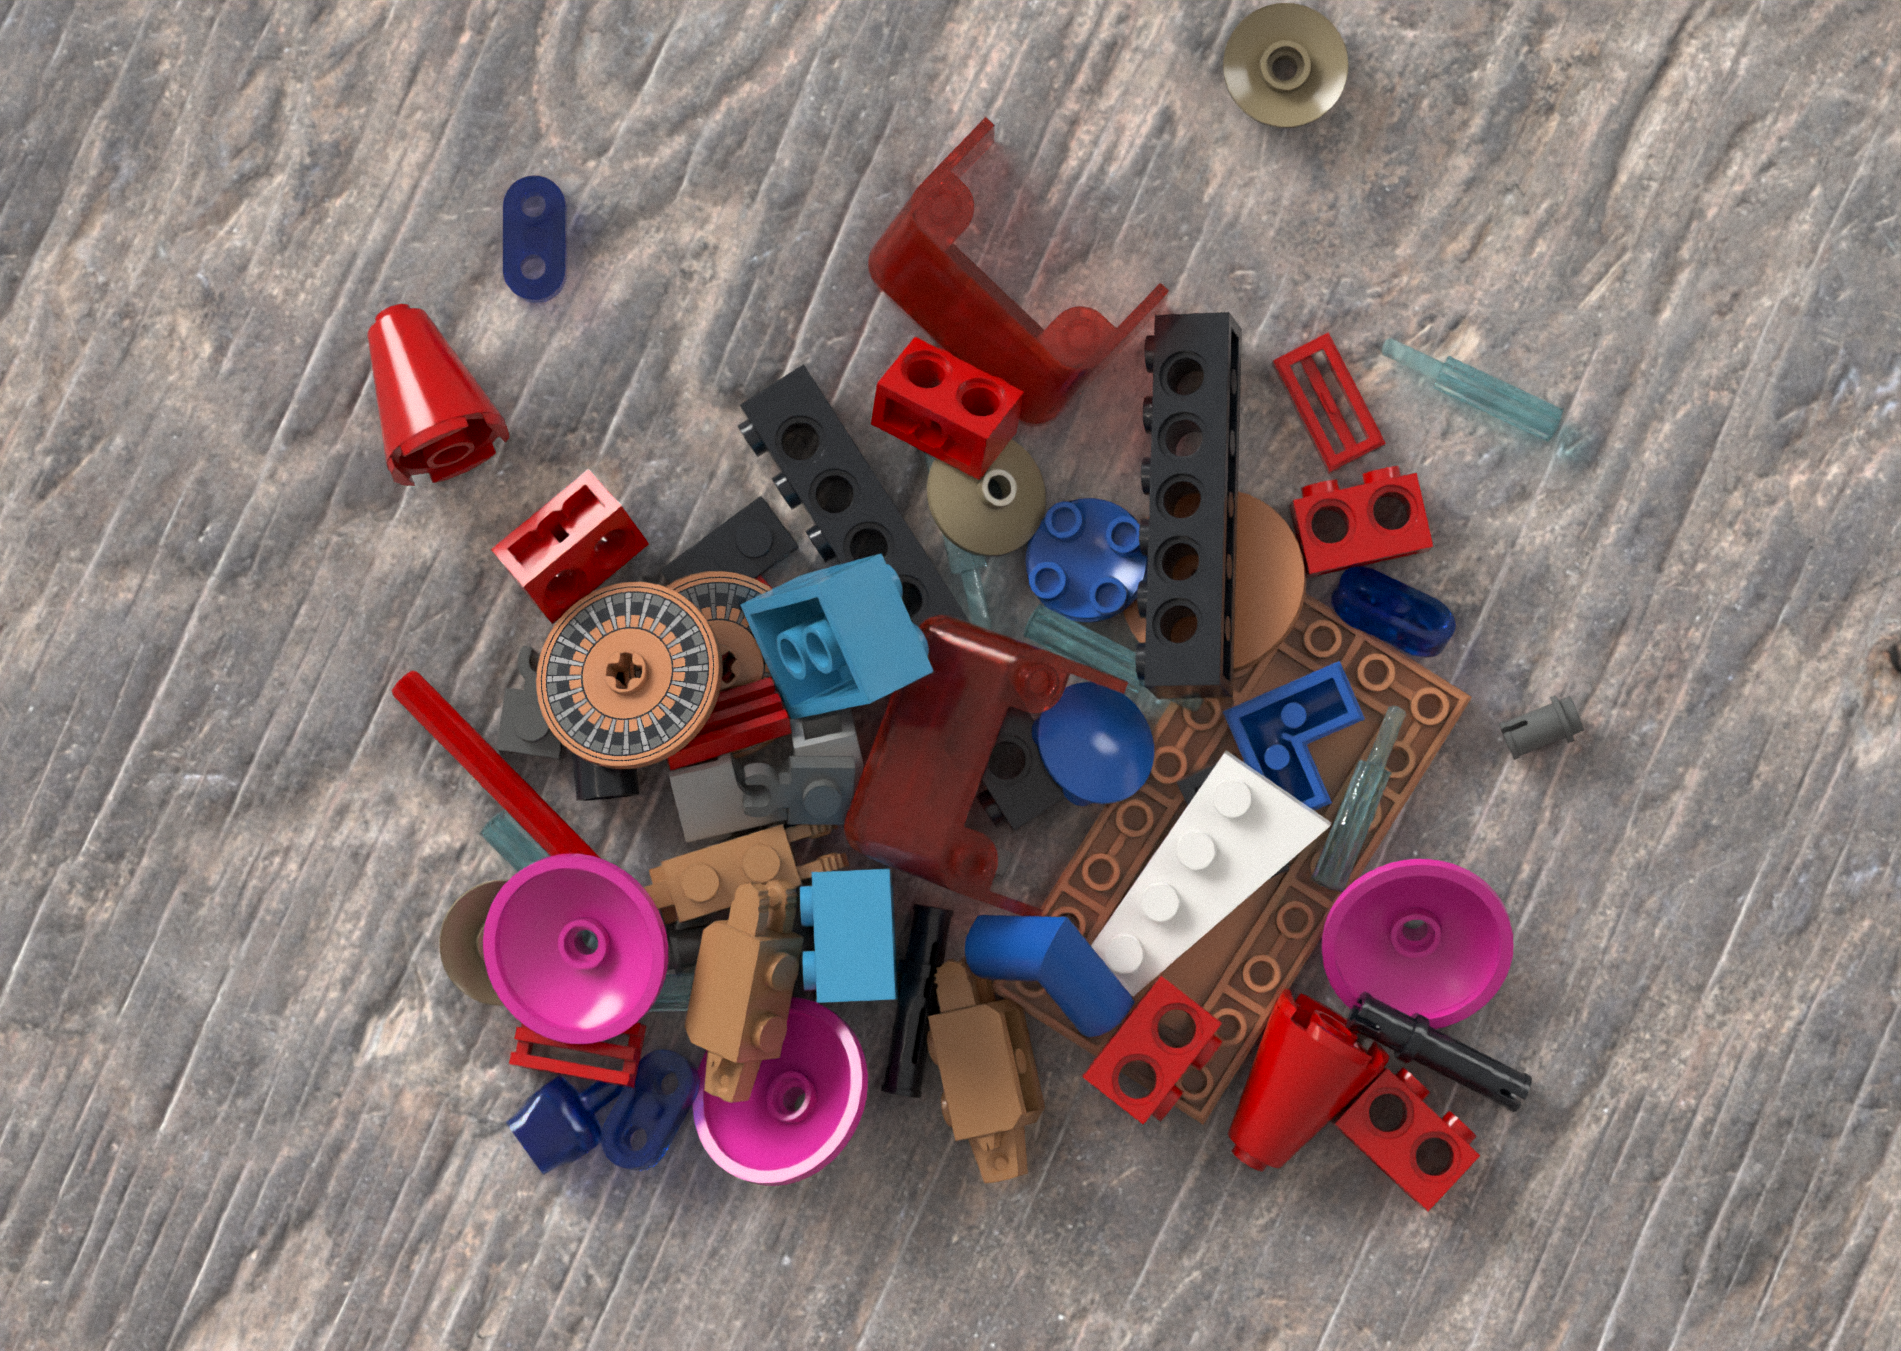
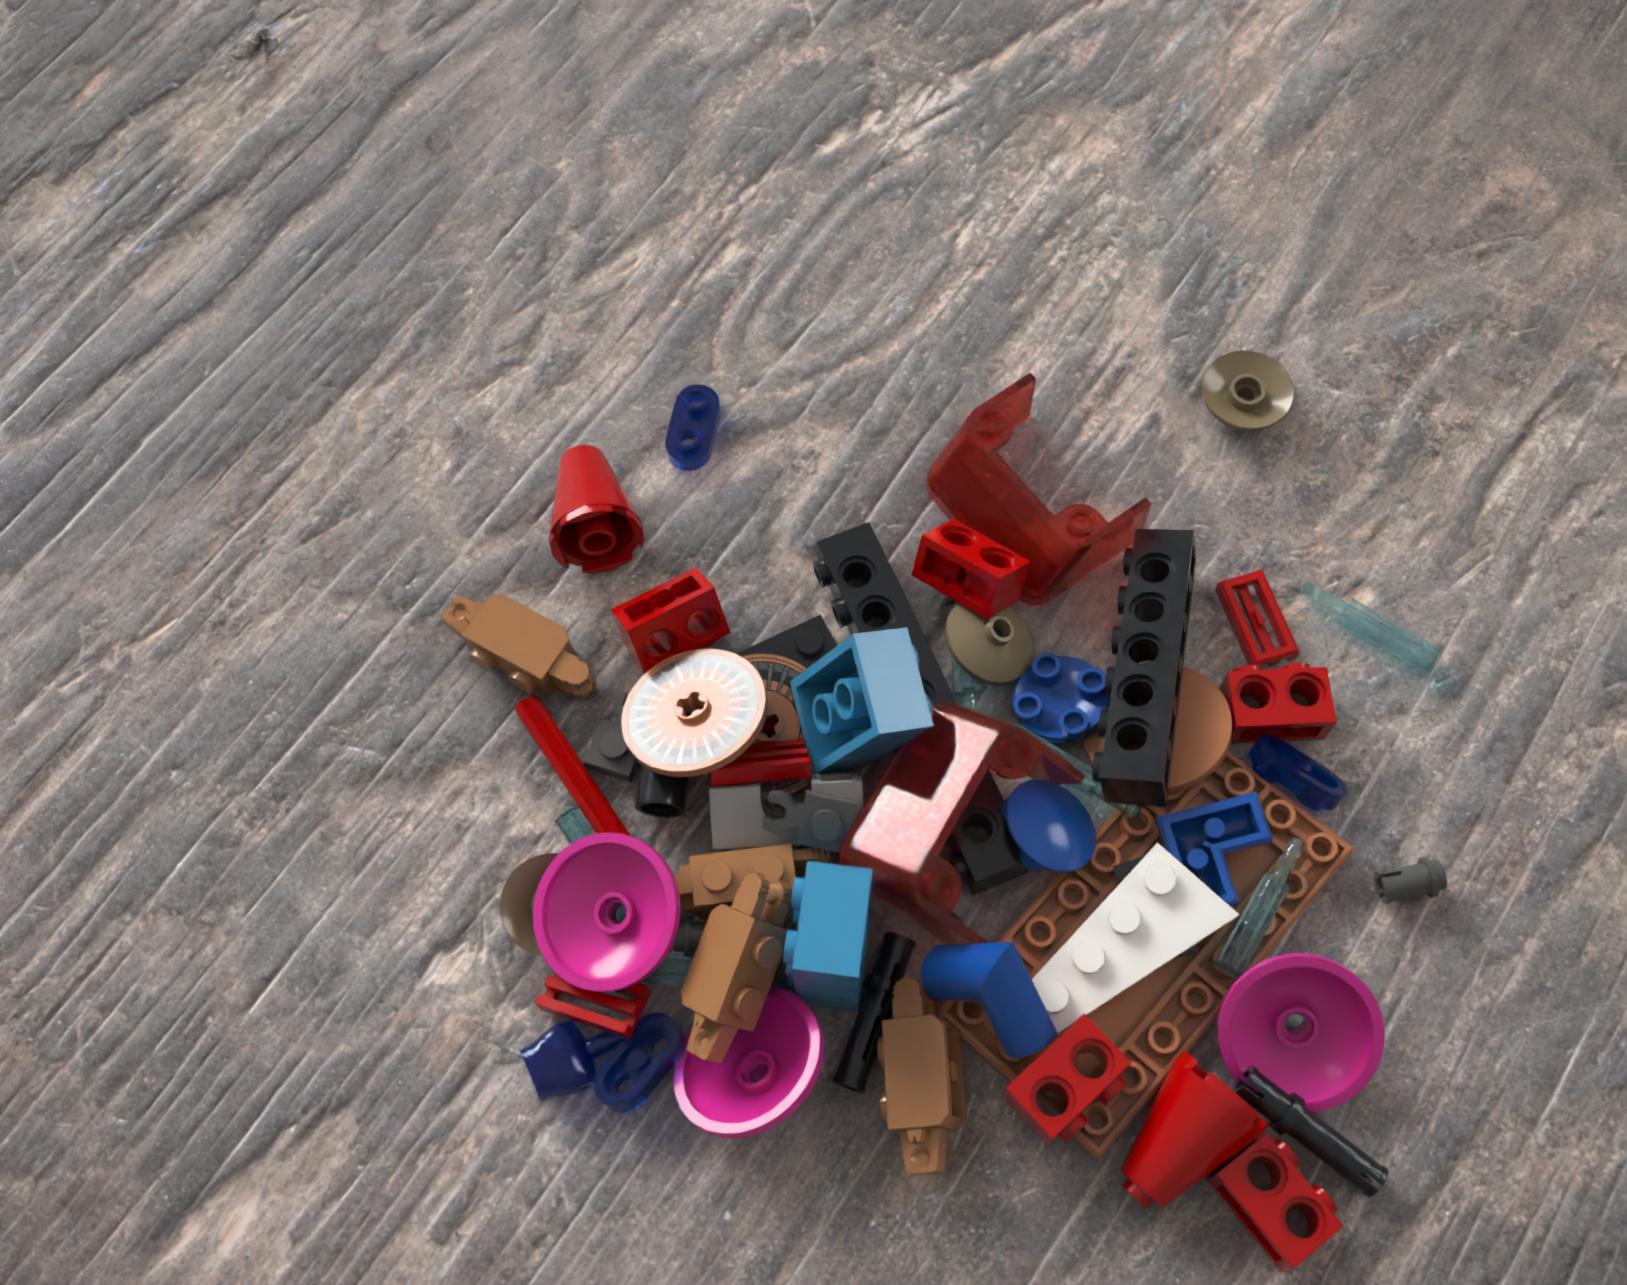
camera: 10 degrees right, 20 degrees down
(376, 604) = (520, 644): none -> medium nougat hinge

